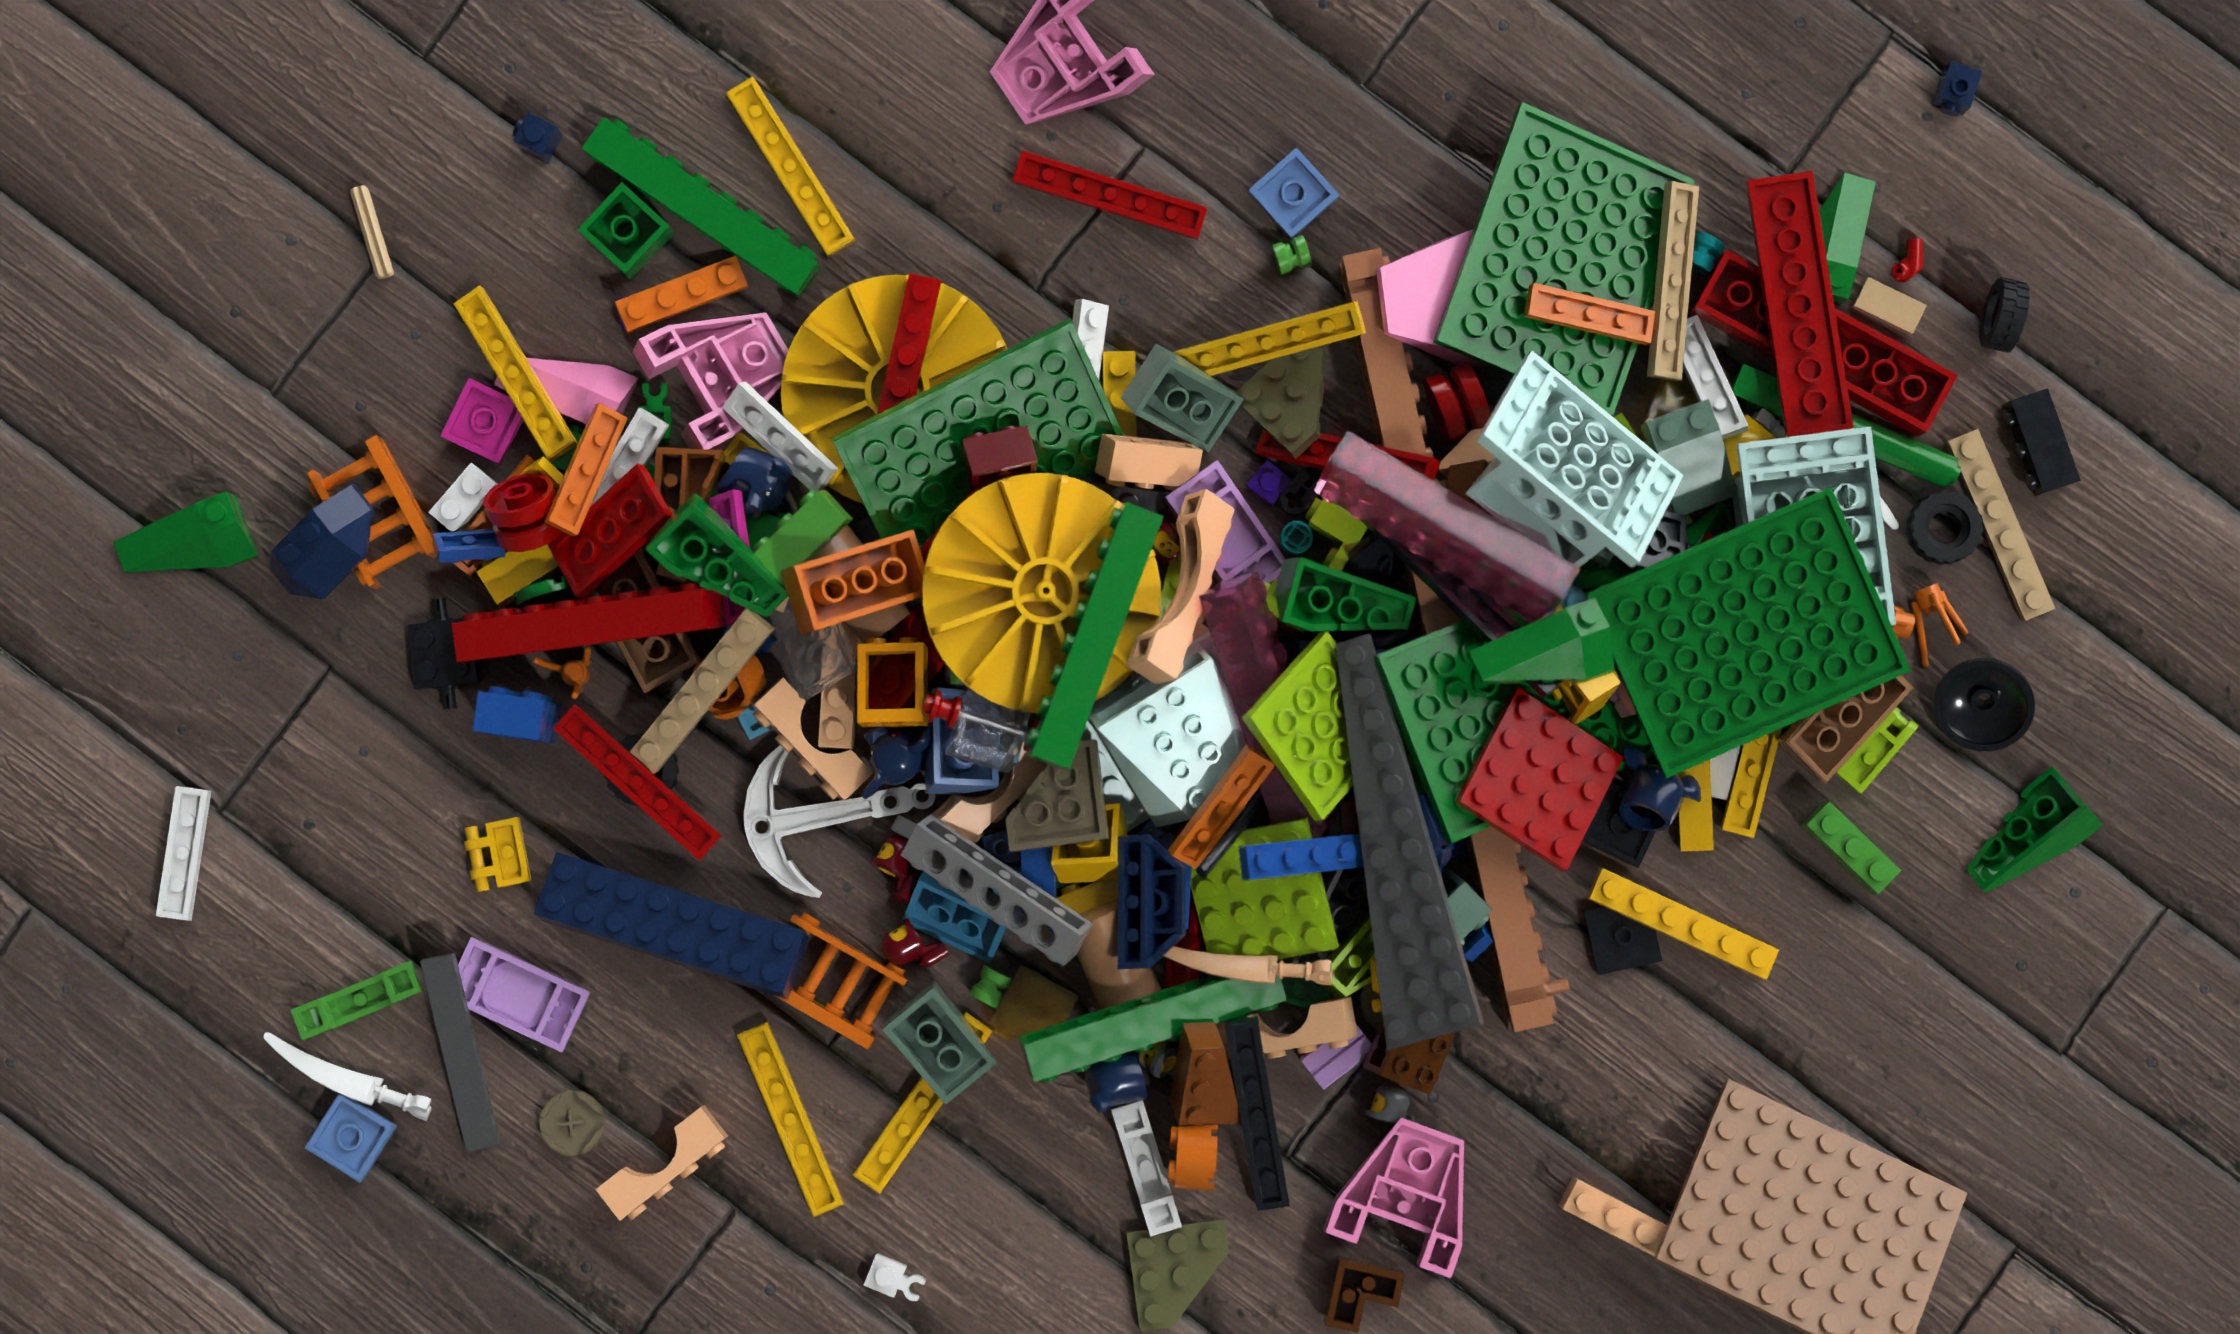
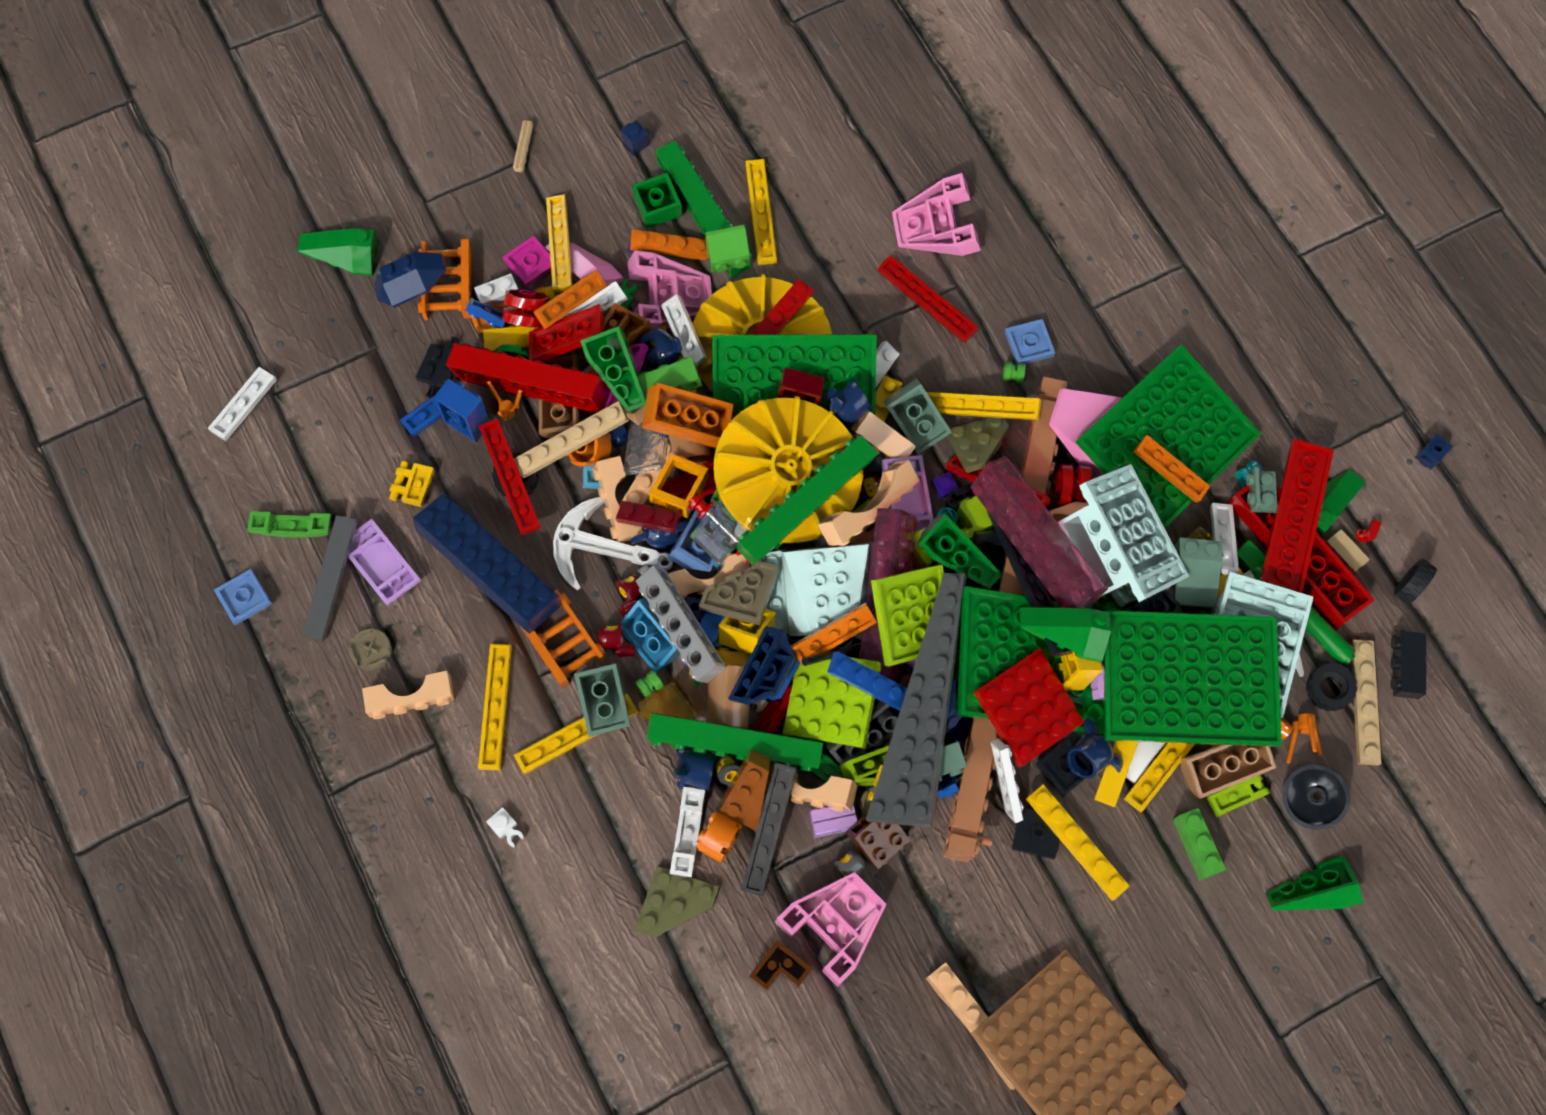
camera: 20 degrees right, 15 degrees down
(348, 1082) = (261, 568): white sword -> none
(457, 747) = (421, 417): none -> blue plate
(779, 273) = (727, 248): none -> bright green slope
(872, 751) = (648, 517): none -> dark red plate
(1080, 444) = (848, 403): none -> dark blue piece
(1251, 968) = (807, 737): light nougat sword -> none
(1557, 897) = (1006, 779): none -> white plate
(1673, 280) = (1226, 477): tan plate -> none
(1733, 283) = (1262, 491): none -> sand green bracket

